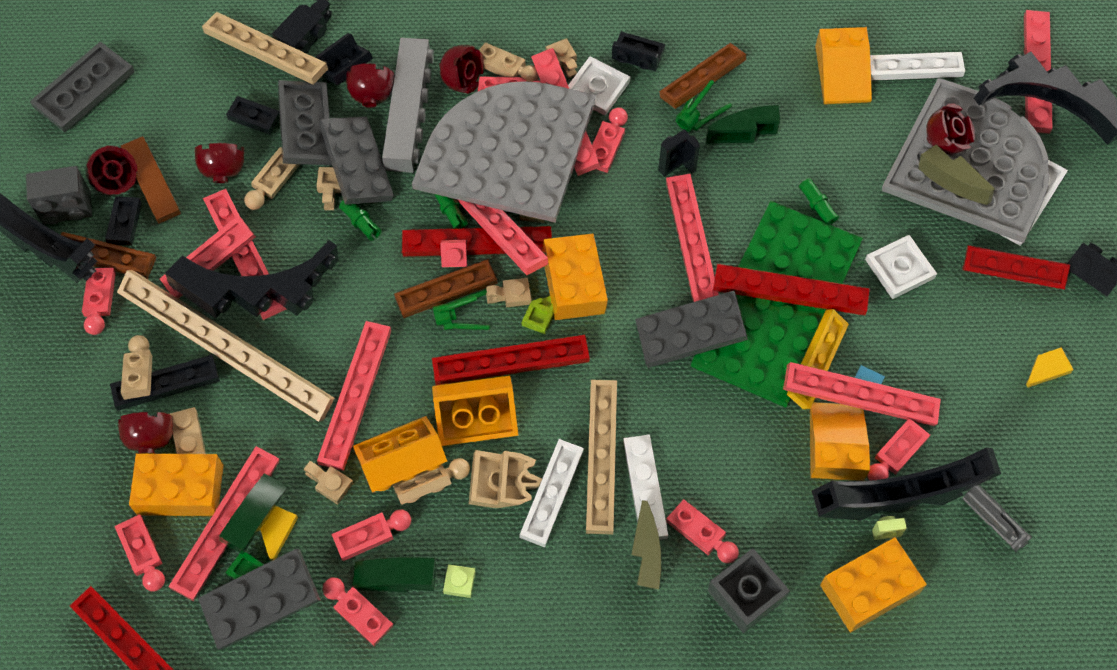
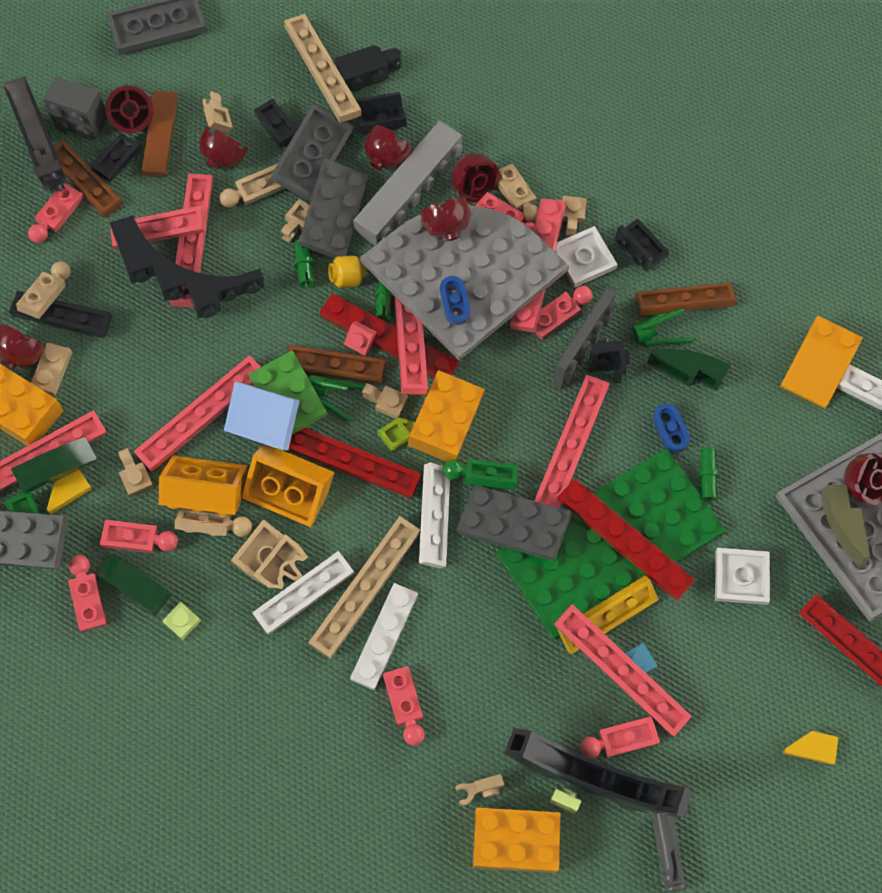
camera: 30 degrees right, 5 degrees up
(192, 135) = (216, 115): none -> tan plate
(226, 345) = (126, 312): tan plate -> none
(403, 205) = (346, 271): none -> yellow head
(415, 363) = (261, 415): none -> light blue tile
(425, 333) = (288, 378): none -> bright green plate
(470, 108) = (446, 219): none -> dark red cylinder
(523, 173) = (456, 301): none -> blue plate
(620, 363) = (434, 517): none -> white plate
(636, 305) = (483, 473): none -> green plate
(648, 149) = (587, 335): none -> dark grey plate
(648, 547) = (346, 689): olive slope -> none
(748, 590) = (405, 778): dark grey brick -> none
(764, 182) = (672, 429): none -> blue plate
(818, 556) = (487, 786): none -> tan plate
(838, 442) = (574, 697): light orange slope -> none

